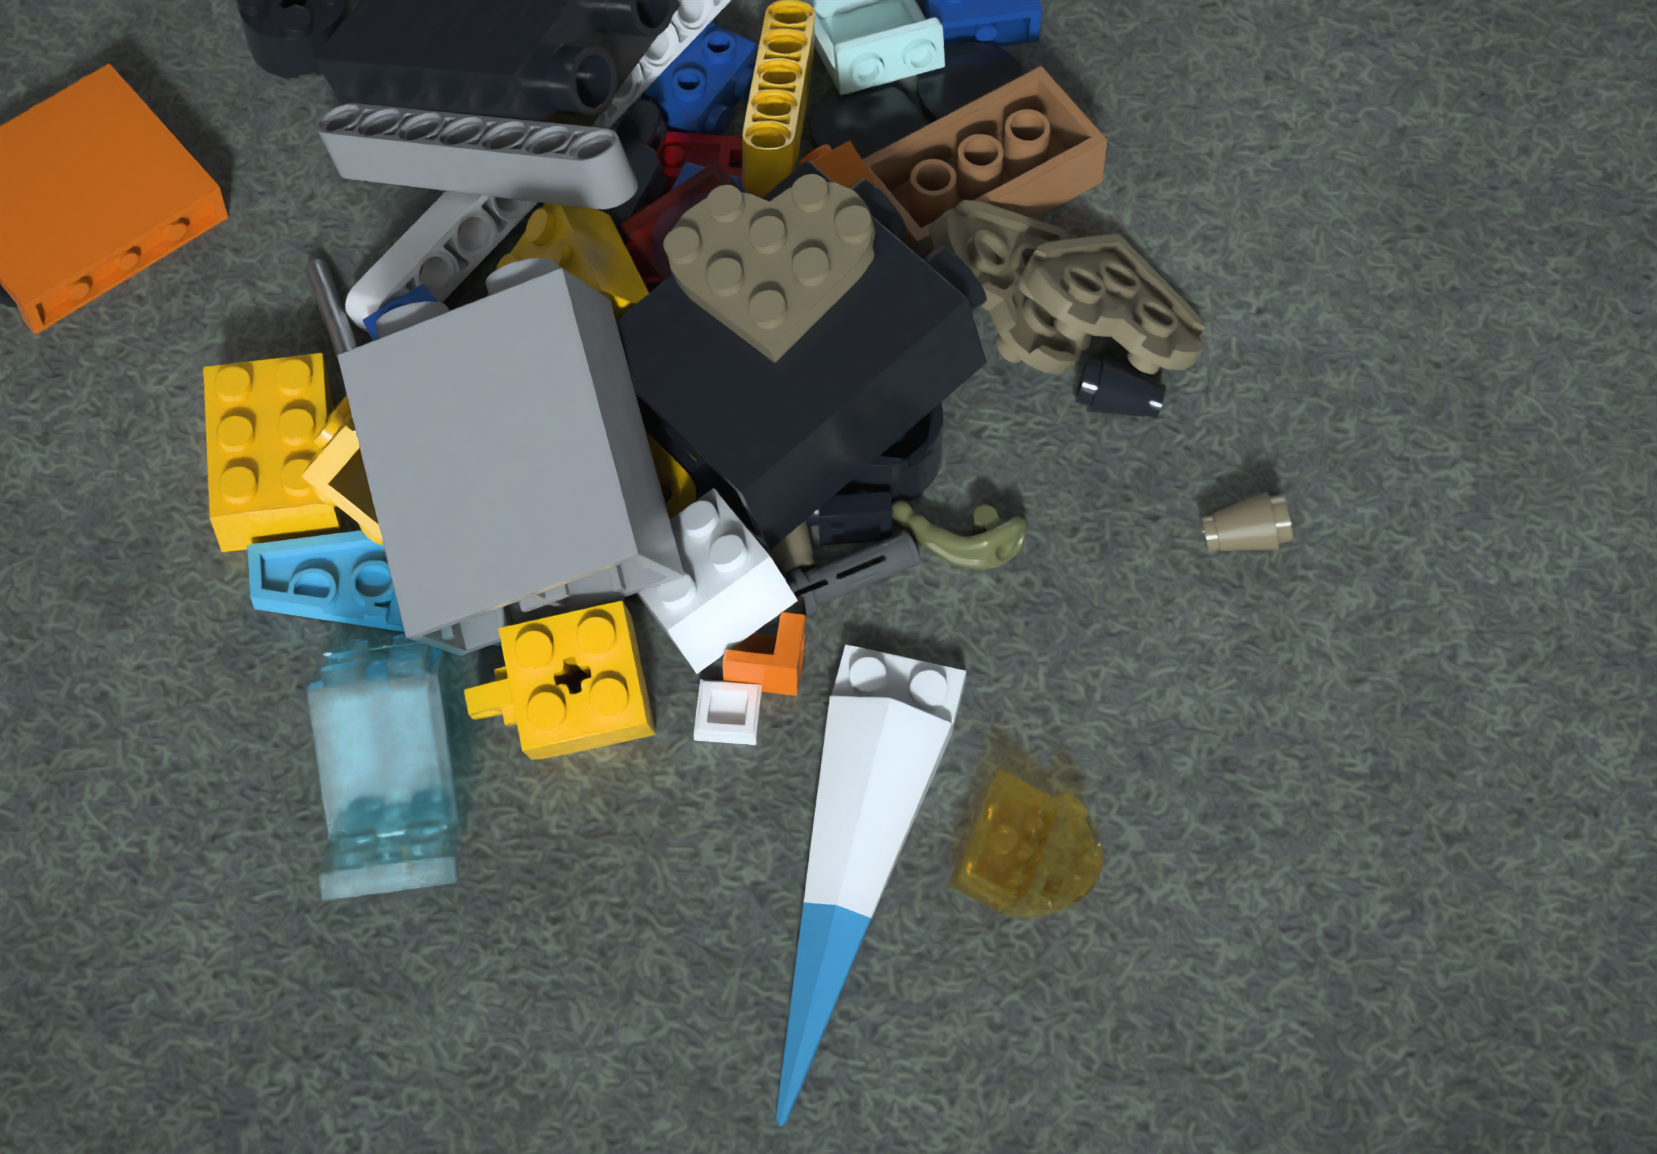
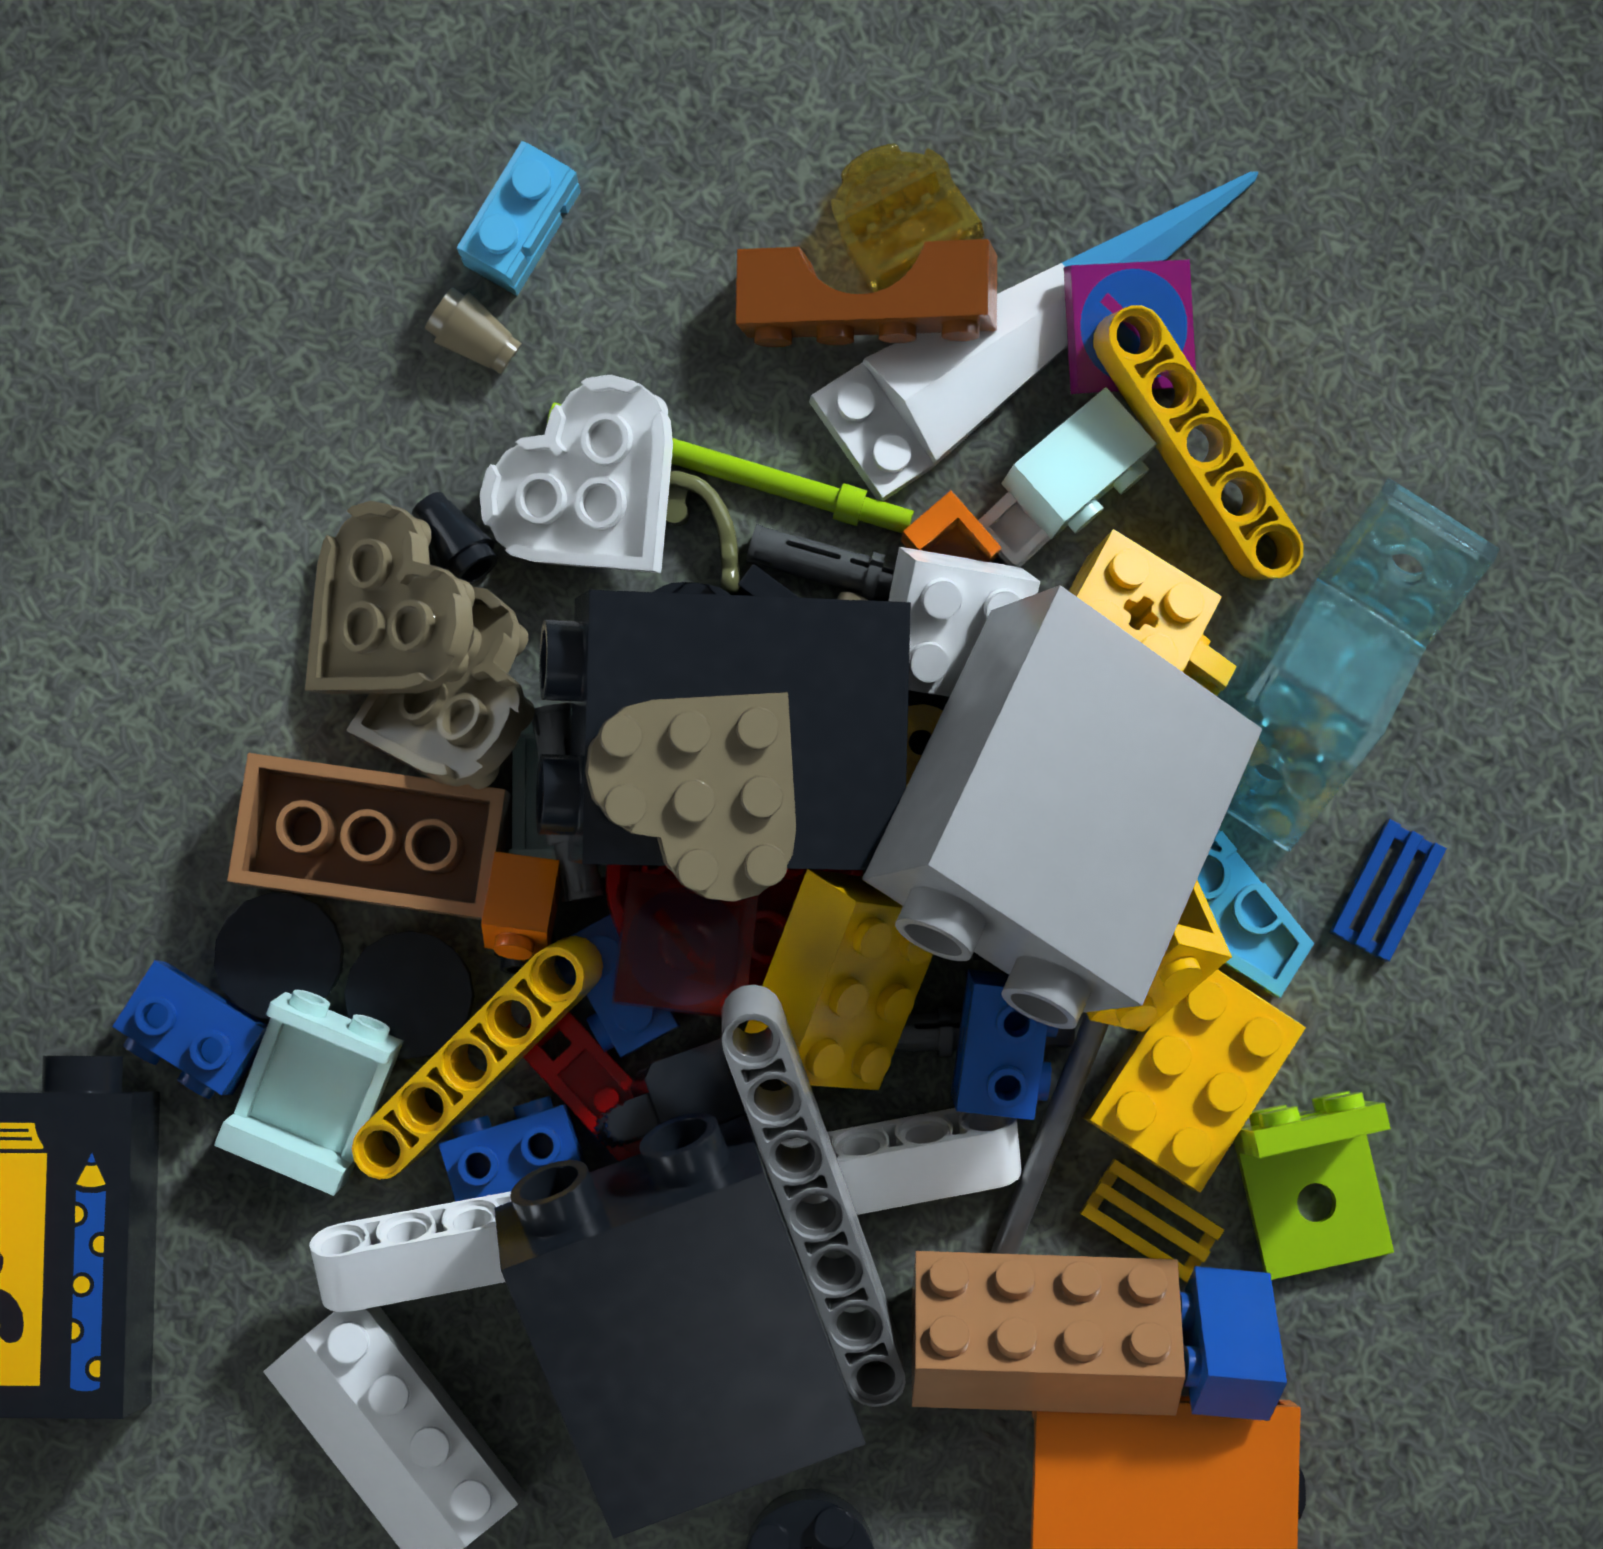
camera: 140 degrees left, 25 degrees up
(106, 300) = (1232, 1344): none -> blue brick
(128, 453) = (1324, 1146): none -> lime bracket
(215, 642) = (1412, 843): none -> blue tile
(219, 348) = (1103, 1190): none -> yellow tile
(244, 220) = (1046, 1333): none -> medium nougat brick
(658, 866) = (1226, 455): none -> yellow beam
(717, 773) = (1080, 464): none -> light aqua brick
(771, 906) = (1103, 289): none -> tile
(870, 627) = (847, 503): none -> lime bar
(1047, 719) = (944, 293): none -> dark orange arch
(1060, 479) = (590, 485): none -> white plate
(1296, 614) = (519, 218): none -> medium azure brick

